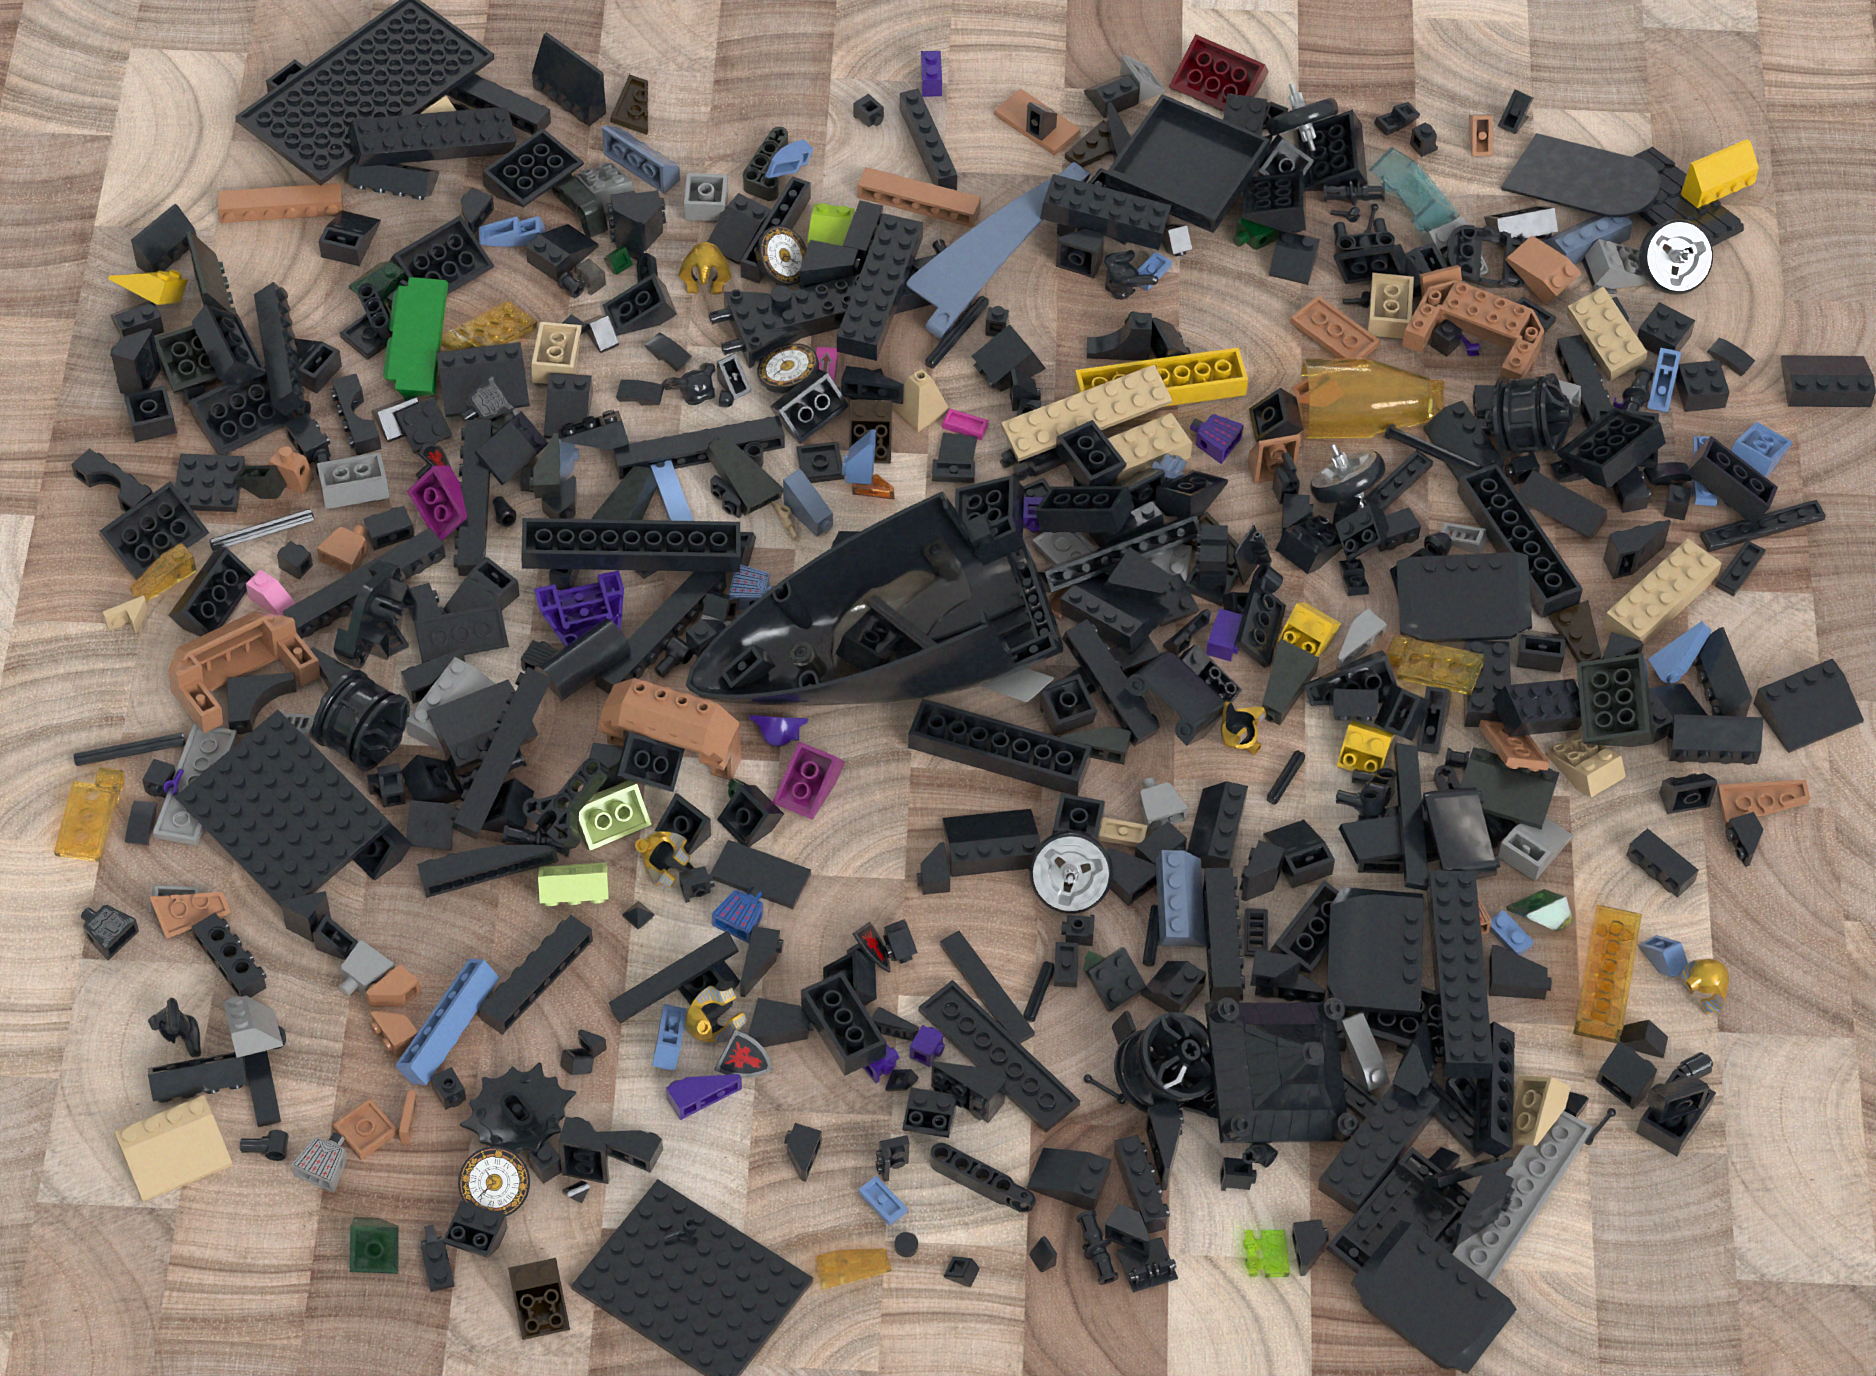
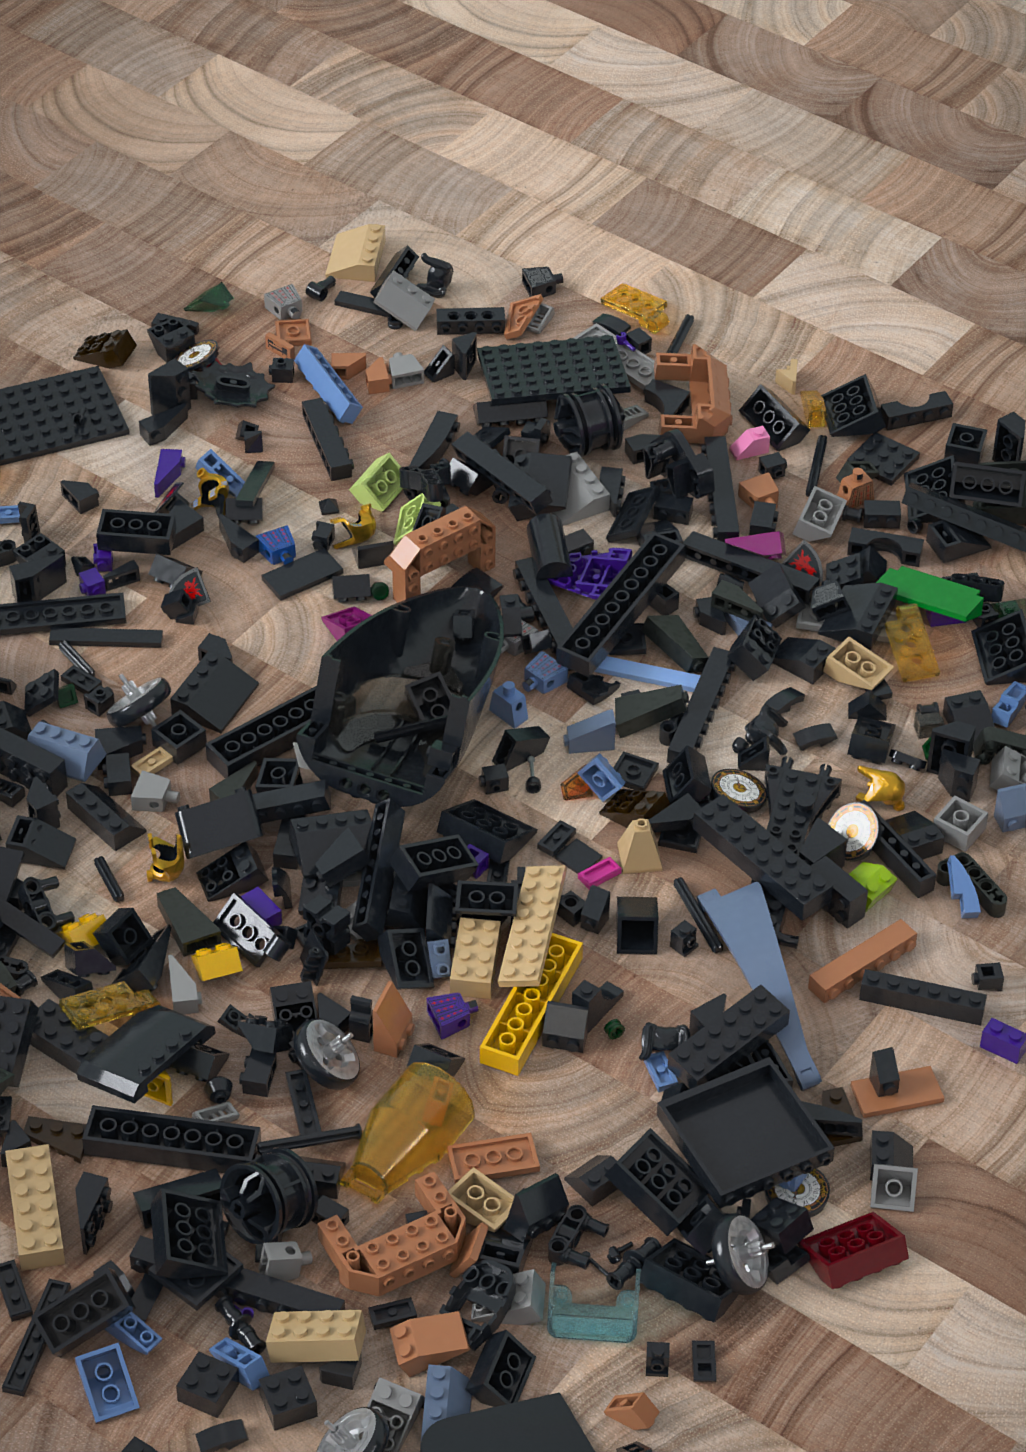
camera: 125 degrees right, 10 degrees down
(1541, 650) = (63, 1092): black slope -> none

